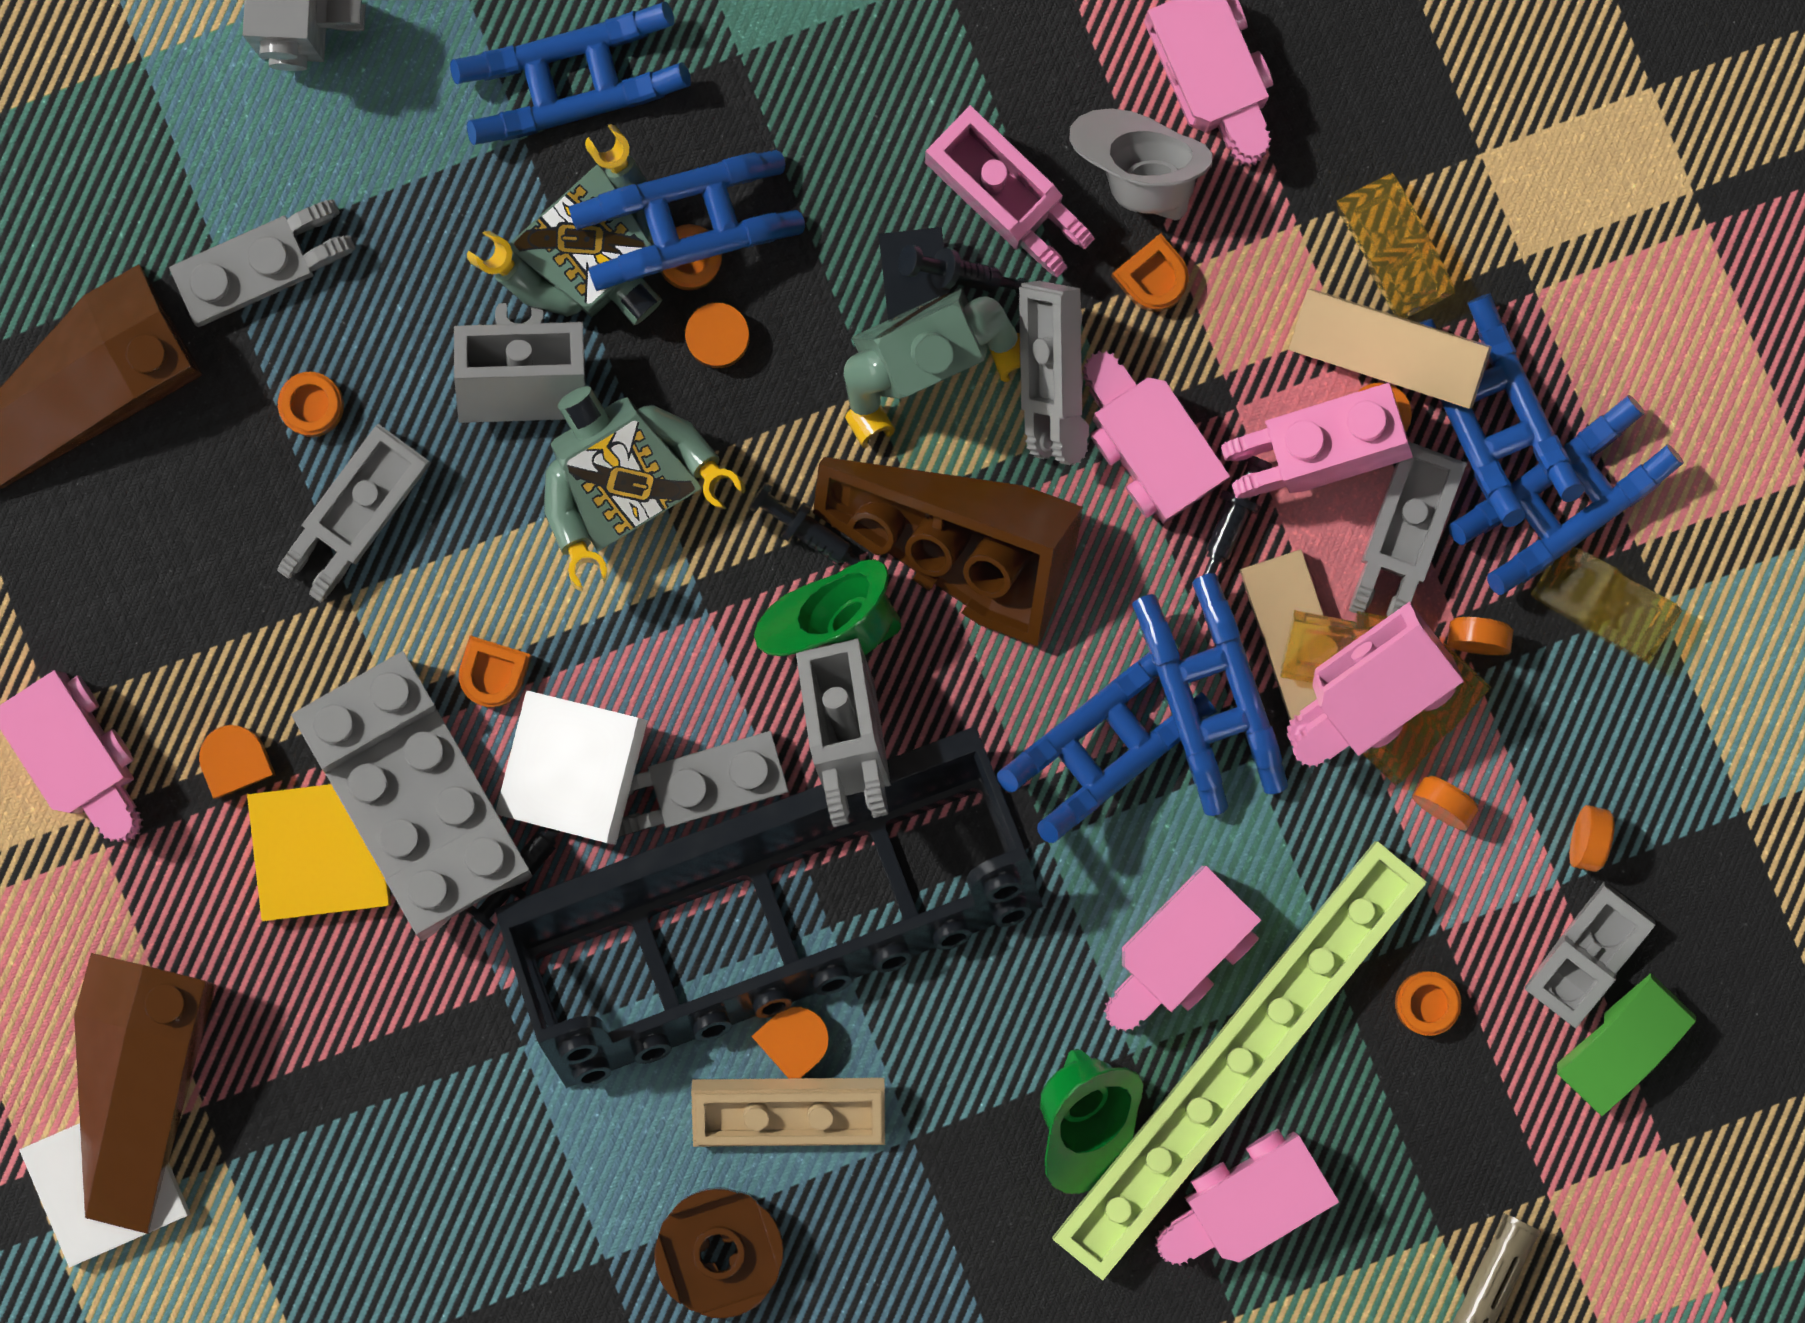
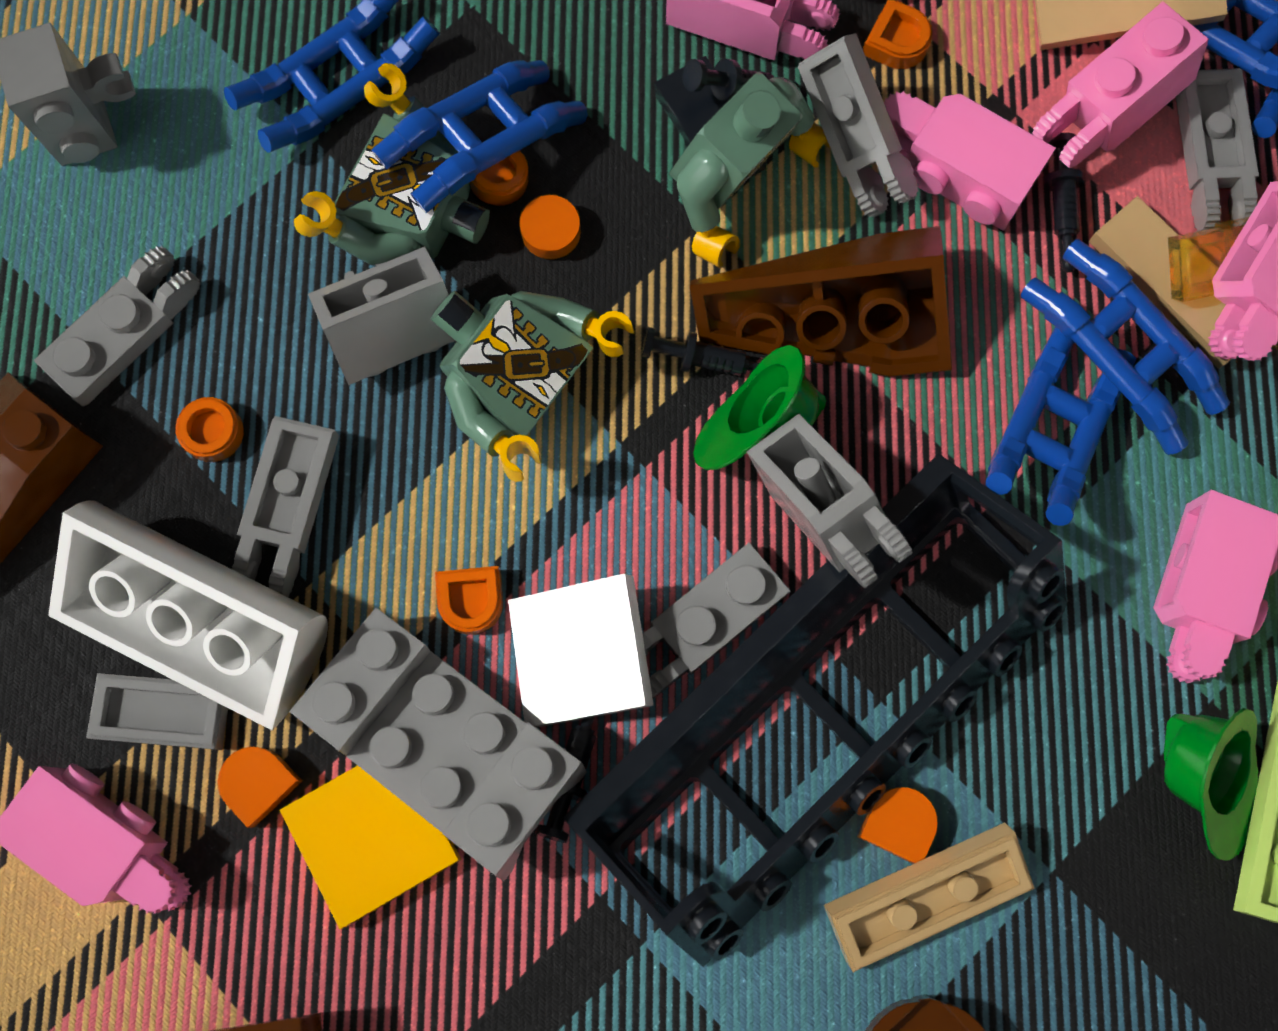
camera: 20 degrees left, 10 degrees down
(169, 657) = (154, 713): none -> light grey tile
(227, 583) = (184, 614): none -> white brick

